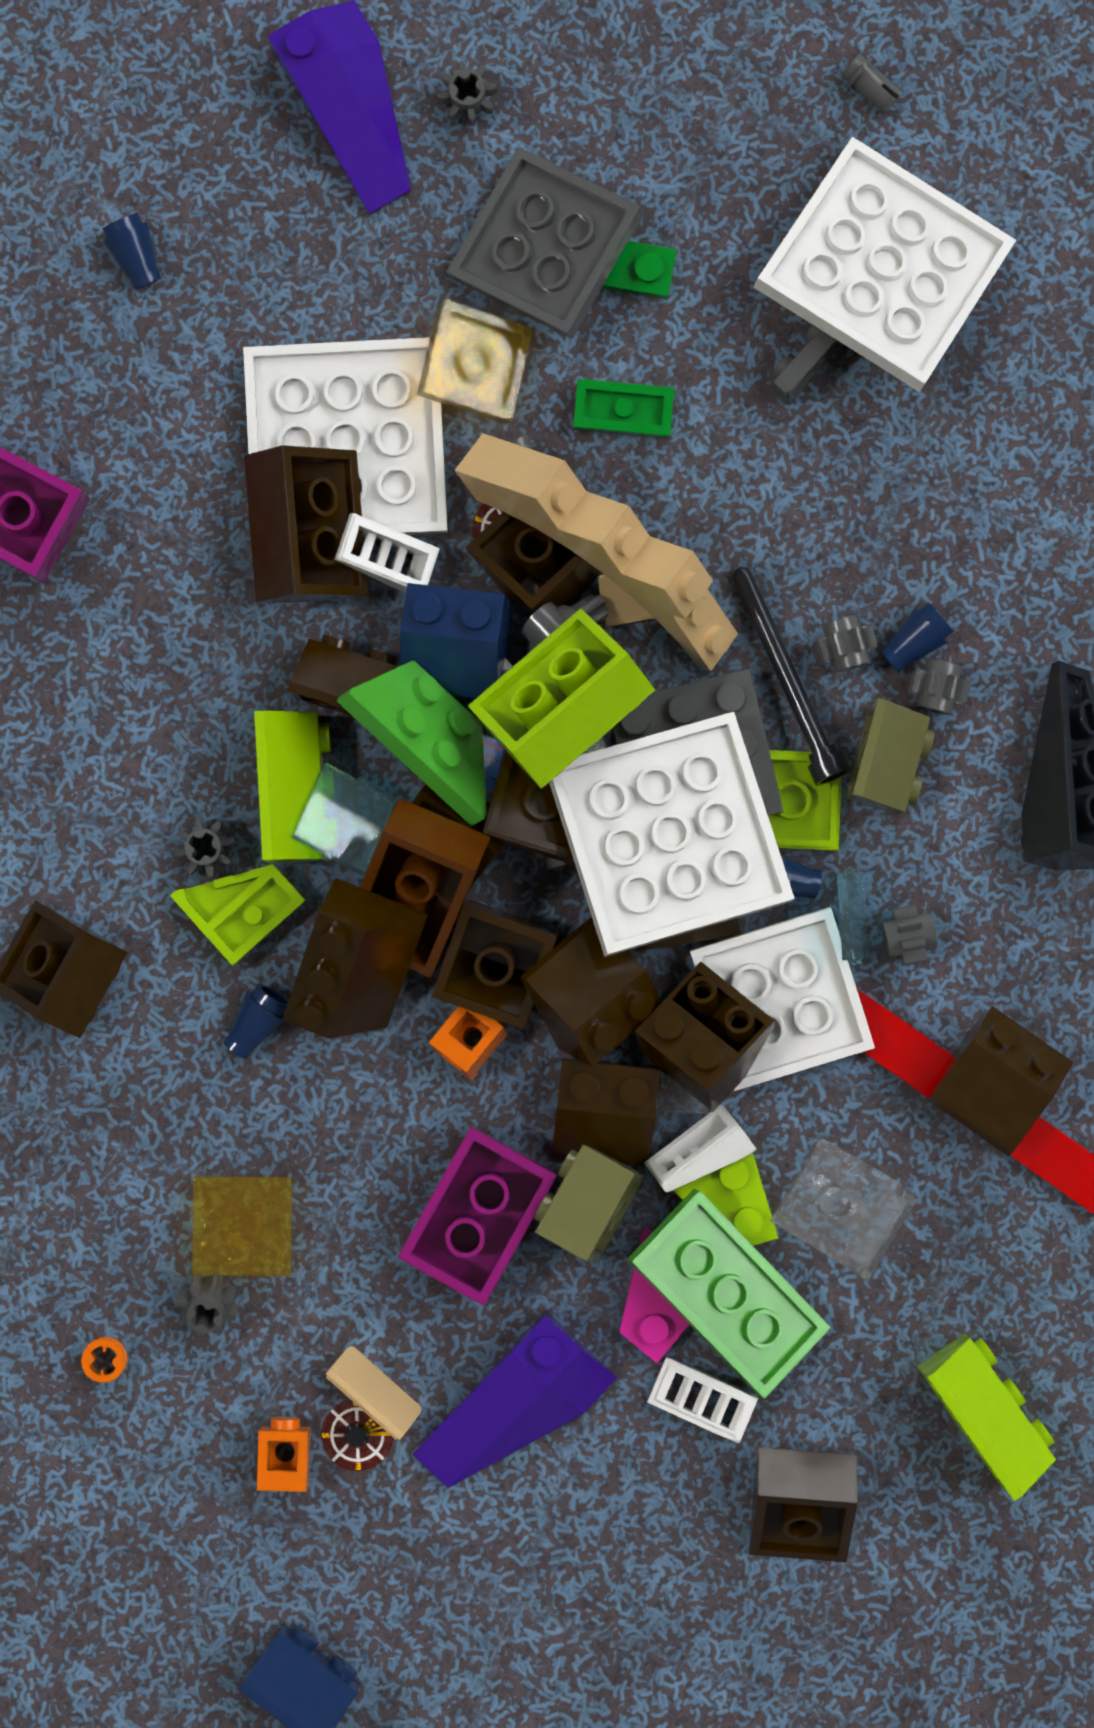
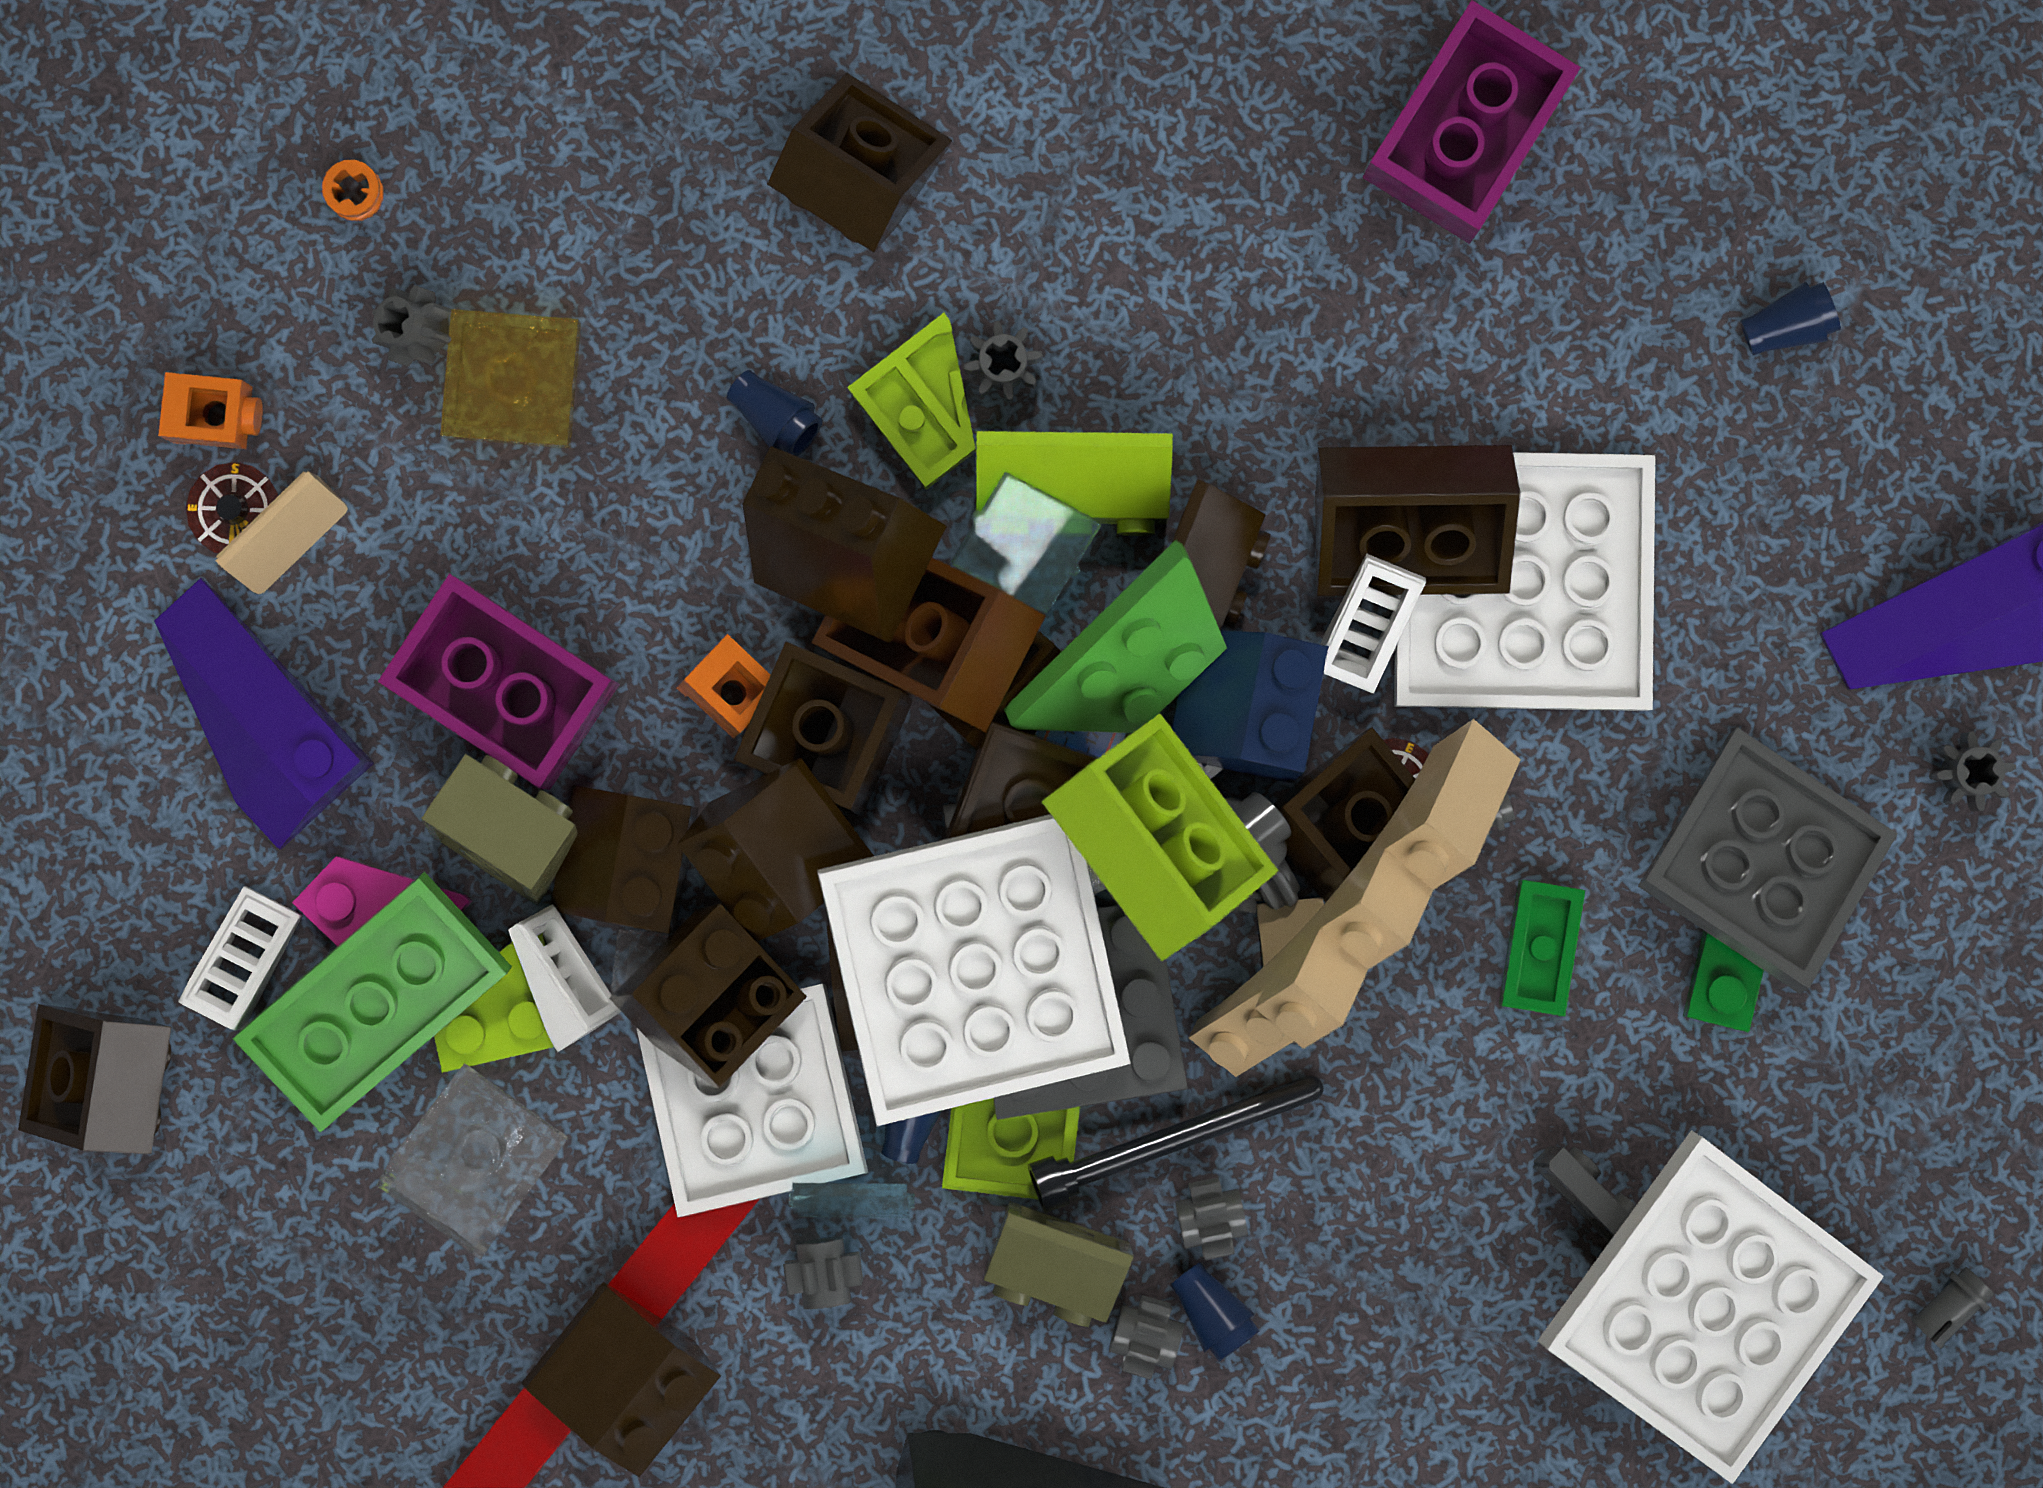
camera: 90 degrees right, 0 degrees up
(474, 361) = (1616, 756): clear yellow plate -> none
(990, 1413) = (189, 1332): lime slope -> none

